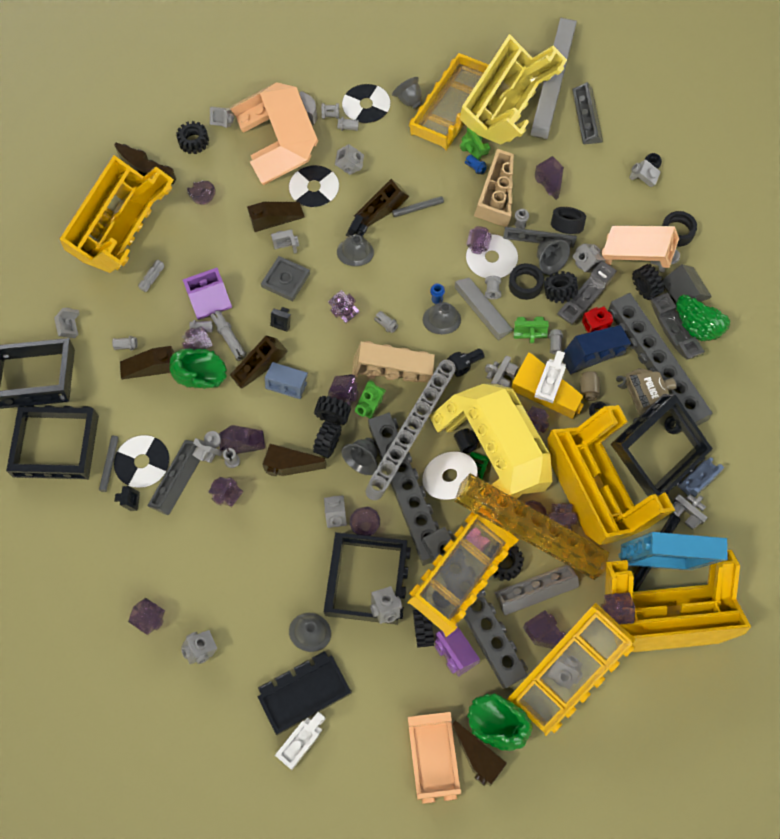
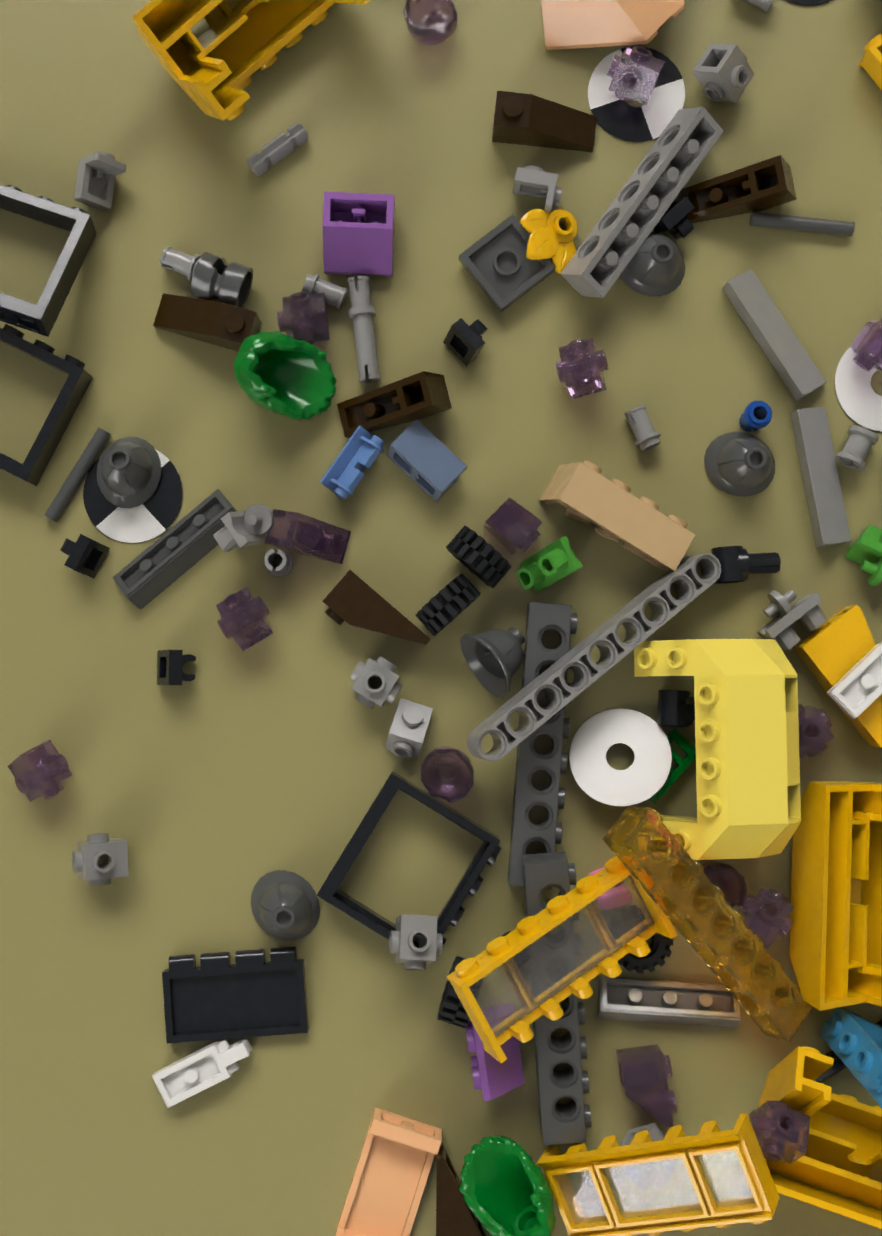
camera: 20 degrees right, 20 degrees up
(135, 451) = (128, 472): none -> dark grey hat
(144, 341) = (218, 280): none -> dark grey wheel
(196, 534) = (170, 667): none -> black tile
(249, 396) = (351, 462): none -> medium blue hinge
(301, 257) = (547, 237): none -> yellow plate
(313, 171) = (634, 74): none -> clear purple brick
(313, 494) = (388, 689): none -> light grey brick
(337, 226) = (642, 202): none -> light grey brick
(428, 257) = (773, 334): none -> light grey slope

